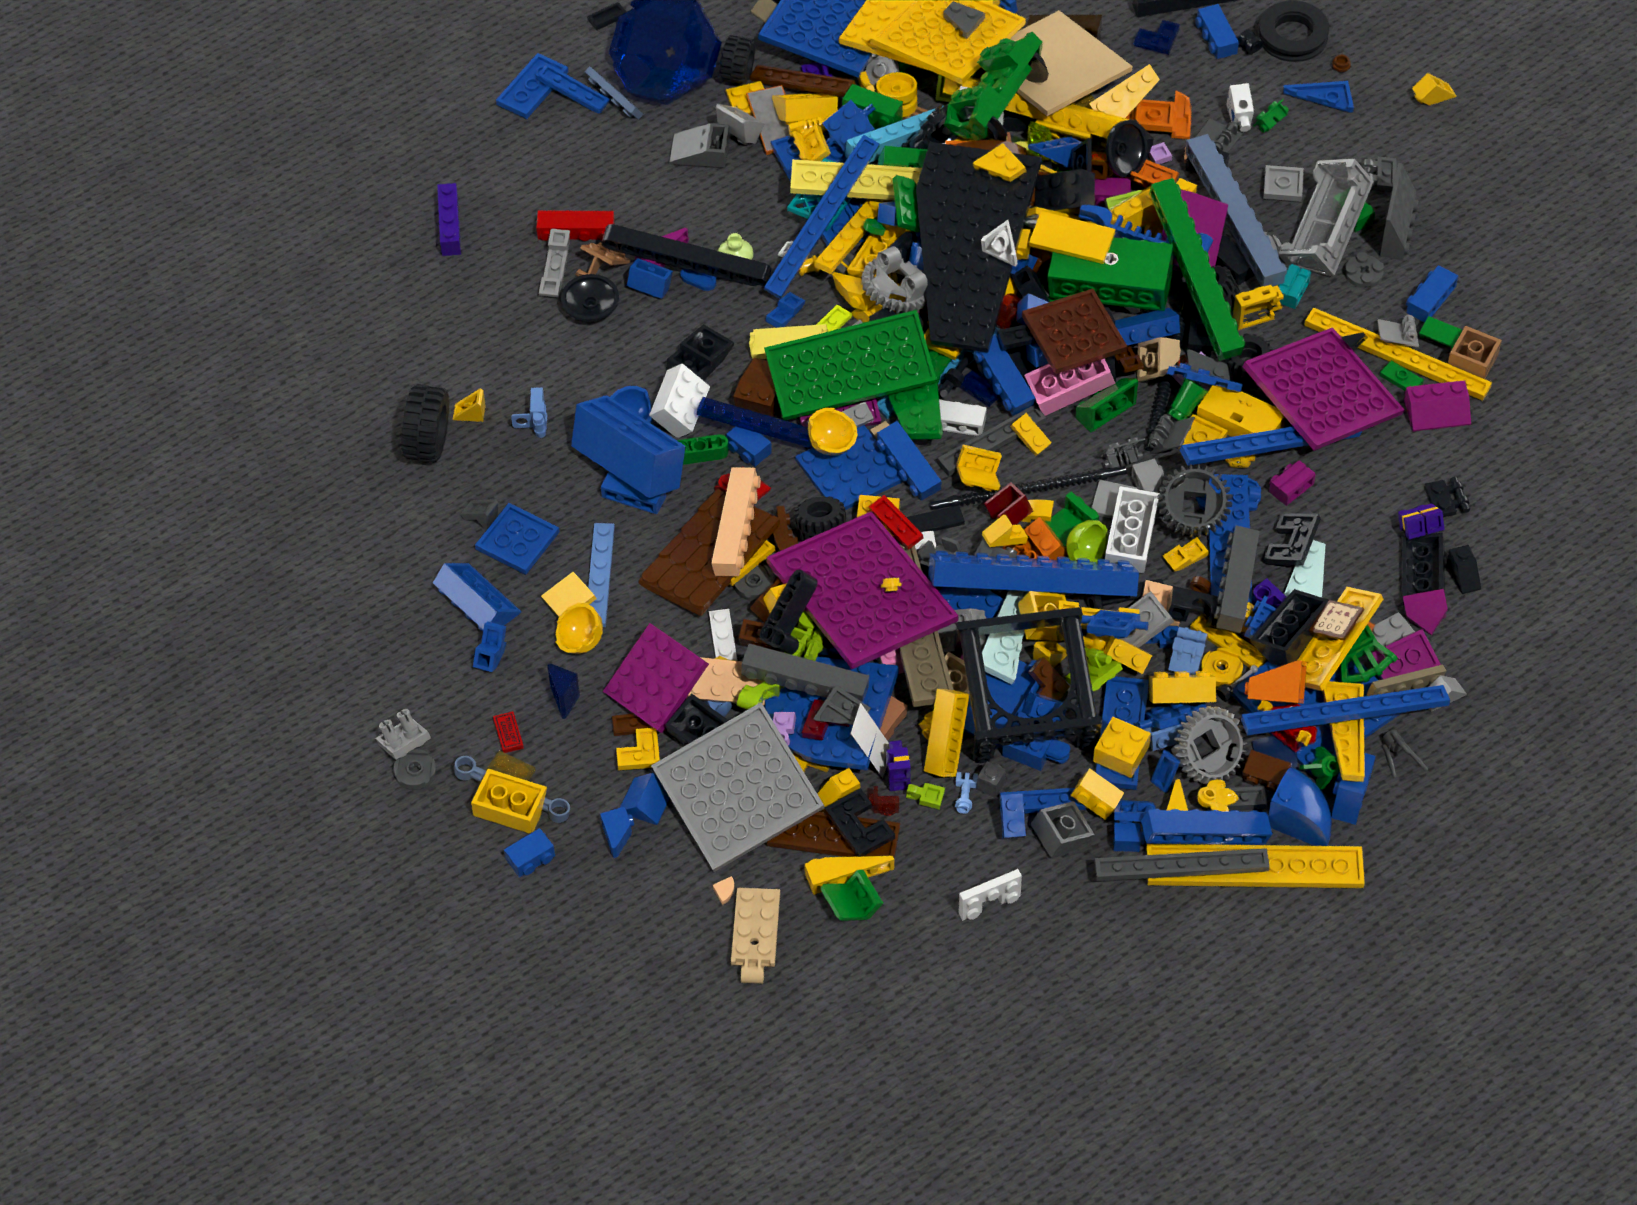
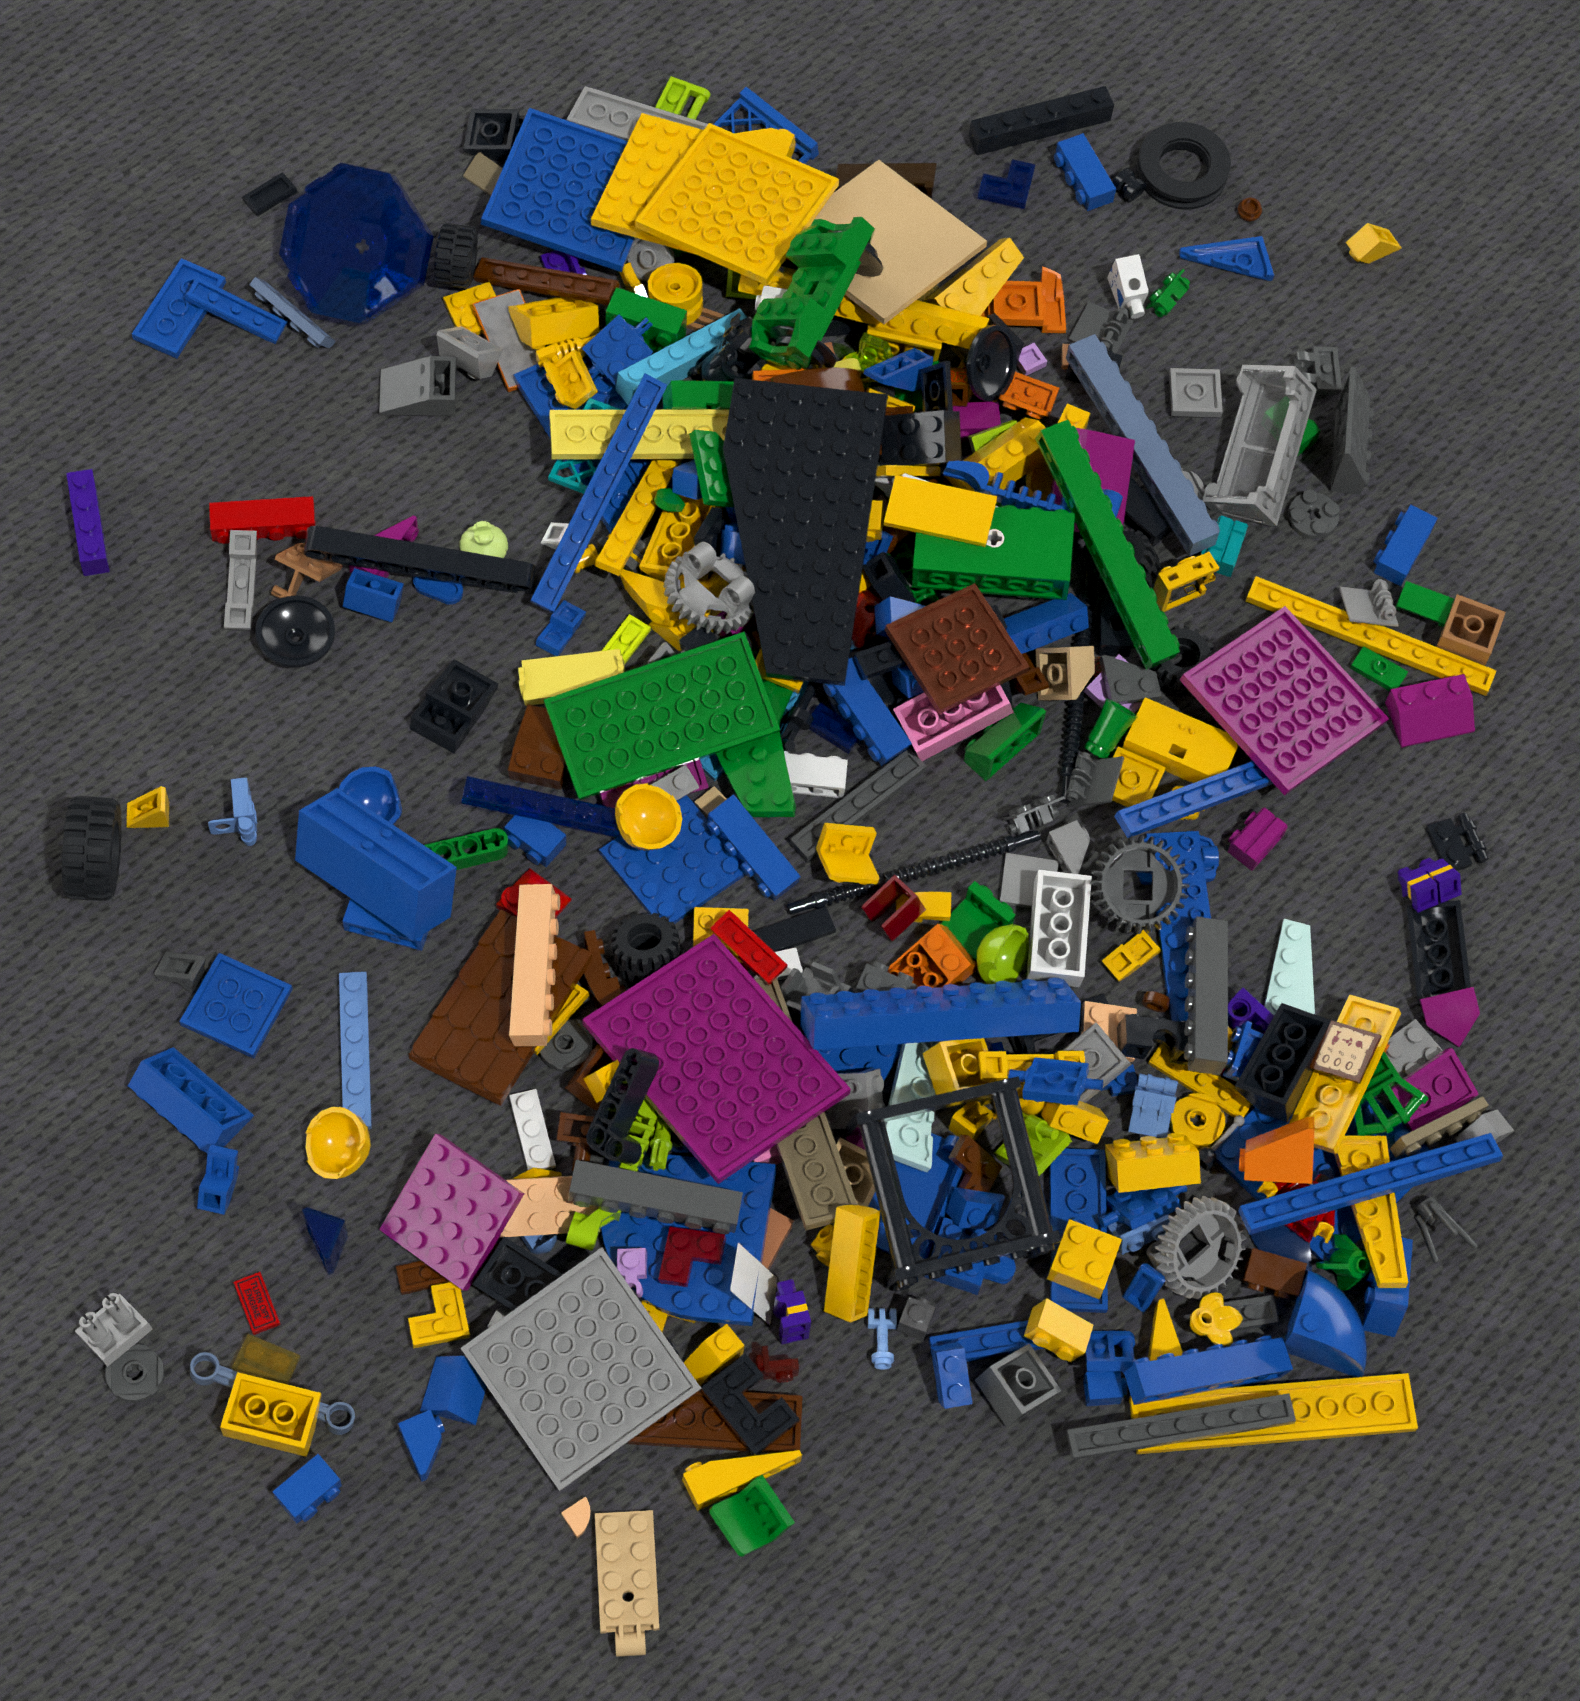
camera: 15 degrees left, 10 degrees up
(567, 593) = (316, 1088): yellow tile -> none
(678, 400) = (435, 782): white brick -> none
(840, 707) = (710, 1245): dark grey wing -> none
(891, 584) = (756, 1050): yellow plate -> none
(929, 795) = (836, 1348): lime plate -> none
(963, 18) = (757, 184): dark grey wing -> none
(1000, 244) = (849, 532): white slope -> none
(1001, 163) = (835, 409): yellow wing -> none
(1004, 533) = (895, 954): yellow slope -> none
(1005, 888) = (955, 1486): white plate -> none
(1030, 434) = (909, 793): yellow plate -> none
(1203, 376) = (1129, 697): blue wing -> none
(1303, 529) = (1282, 910): black plate -> none
(1355, 340) = (1315, 624): black slope -> none
(1464, 569) = (1492, 949): black slope -> none

